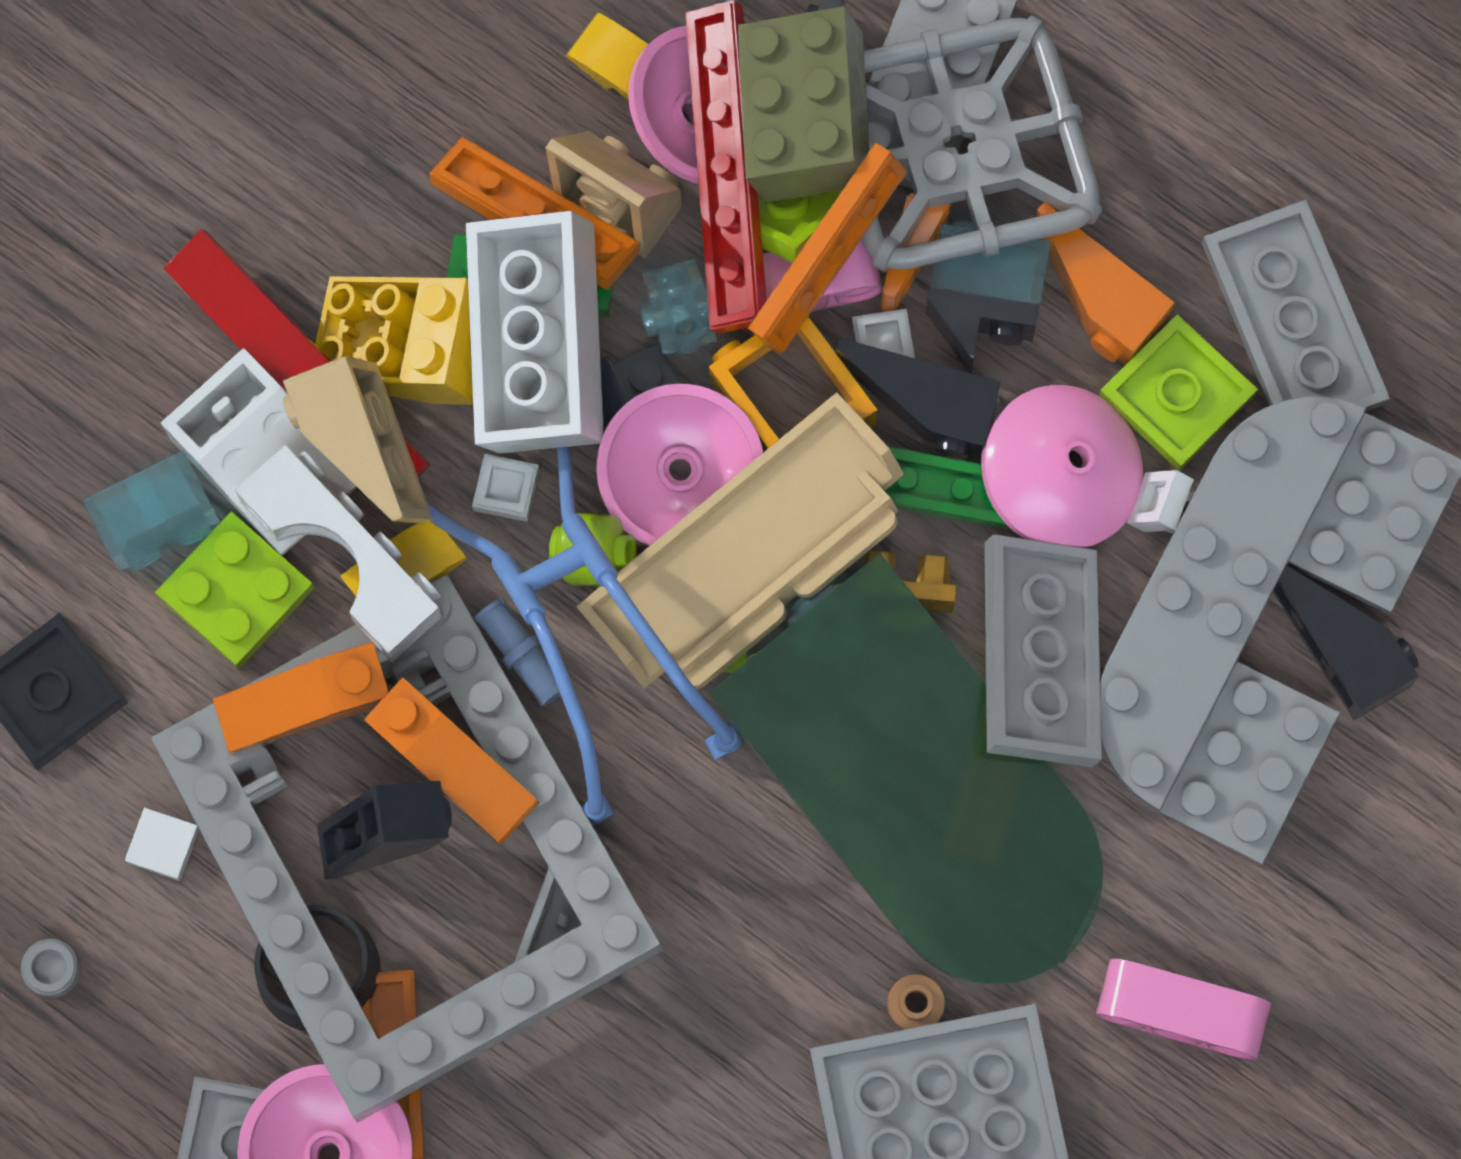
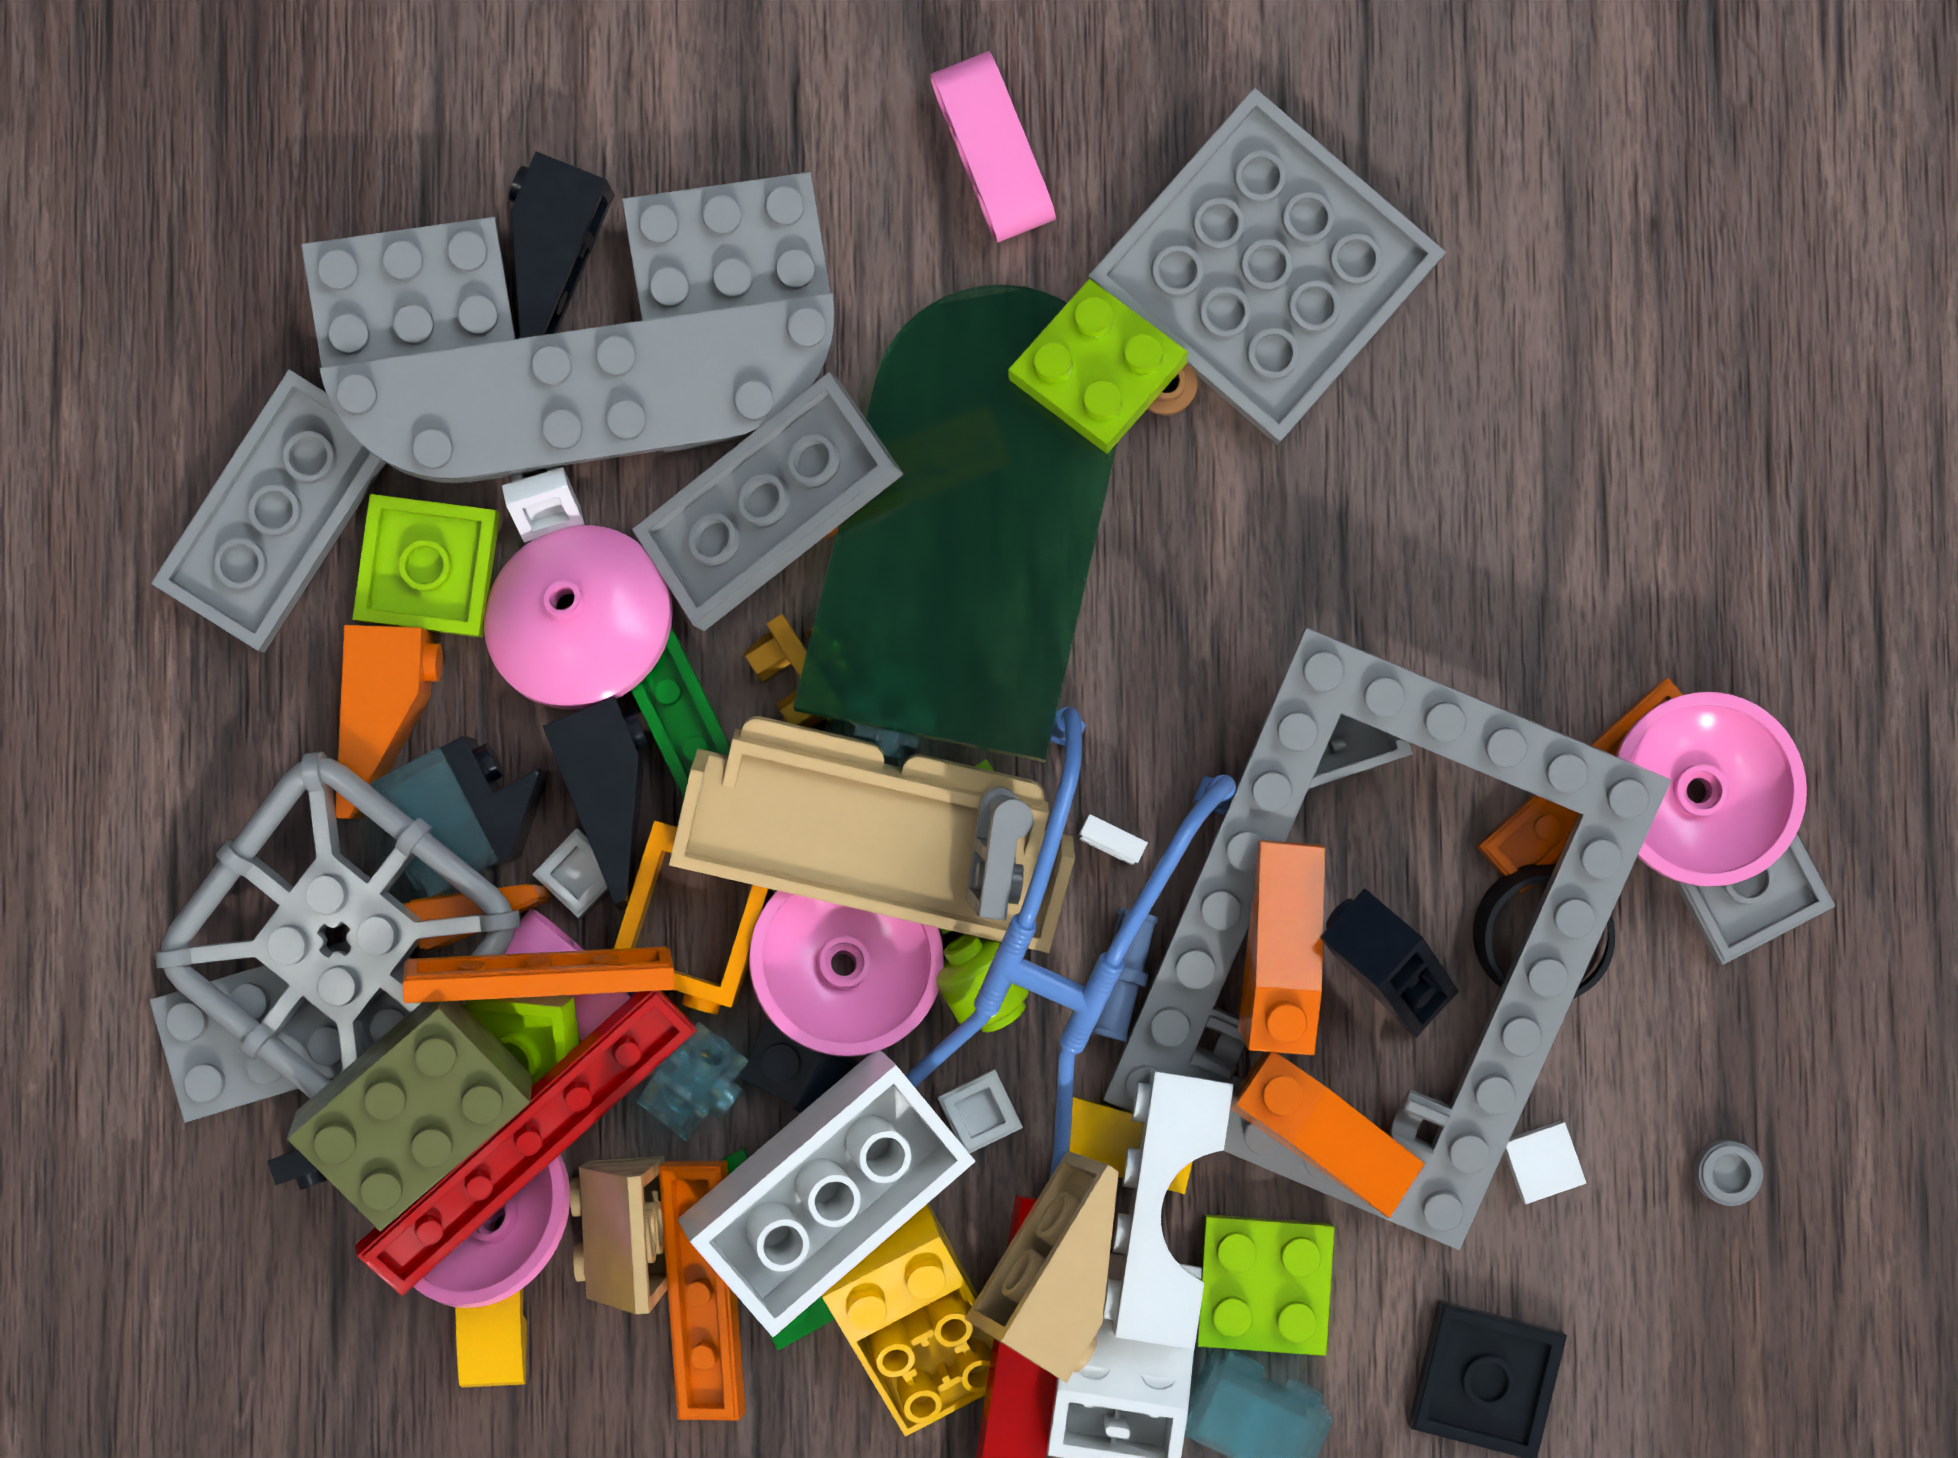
camera: 130 degrees left, 10 degrees up
(620, 714) = (1112, 840): none -> white tile
(665, 605) = (993, 869): none -> light grey plate
(963, 957) = (1098, 366): none -> lime plate

